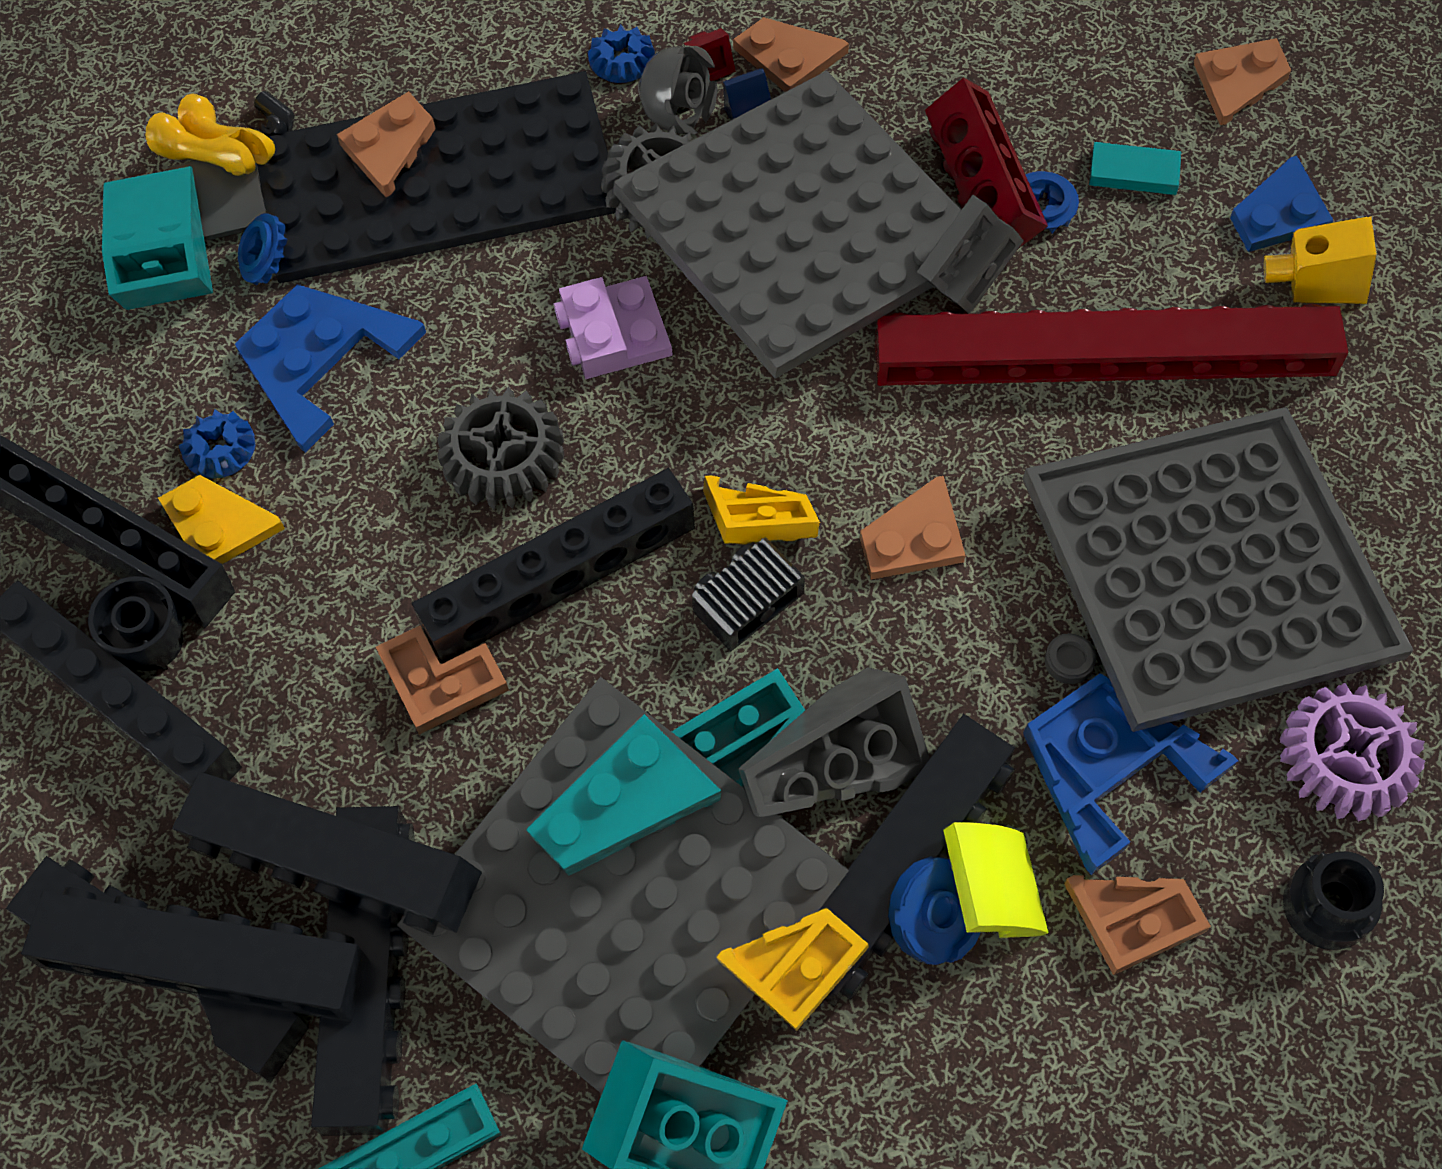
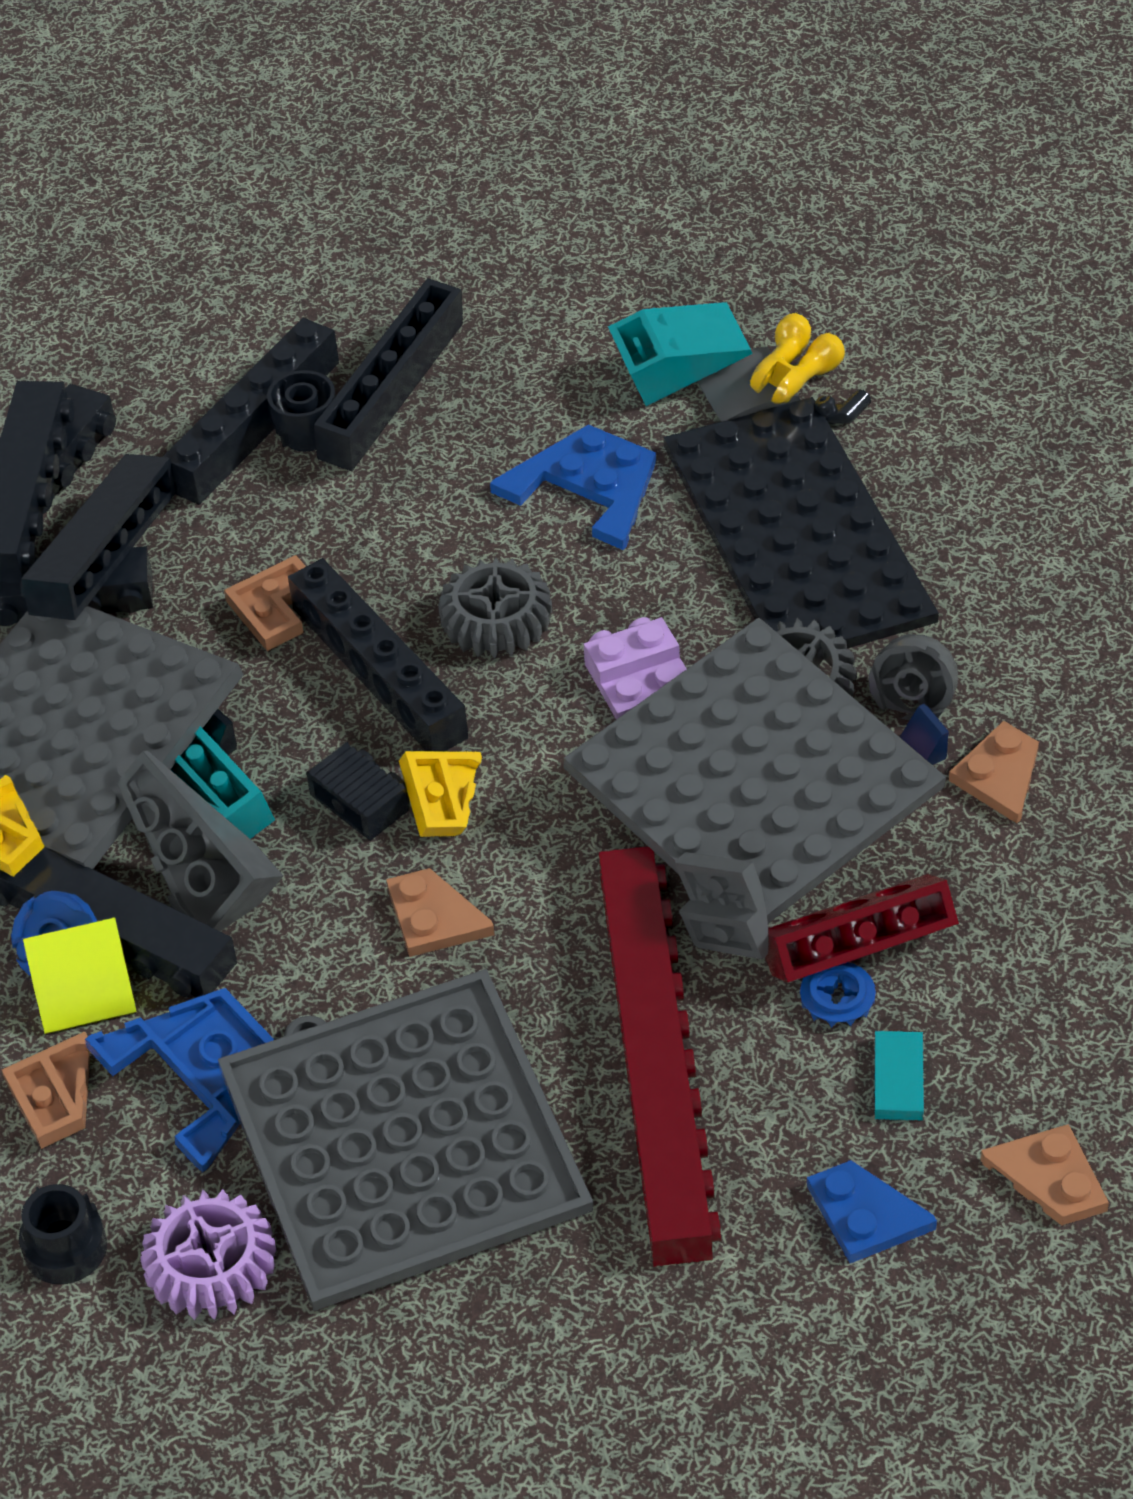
camera: 85 degrees right, 15 degrees down
(217, 519) = (415, 446): yellow wing -> none
(221, 460) = (496, 445): blue gear -> none
(261, 248) = (683, 419): blue gear -> none
(388, 140) = (814, 478): nougat wing -> none
(622, 797) = (126, 682): teal wedge -> none
(625, 66) = (980, 652): blue gear -> none
(719, 49) = (973, 700): dark red tile -> none
(1327, 263) = (772, 1214): yellow torso -> none

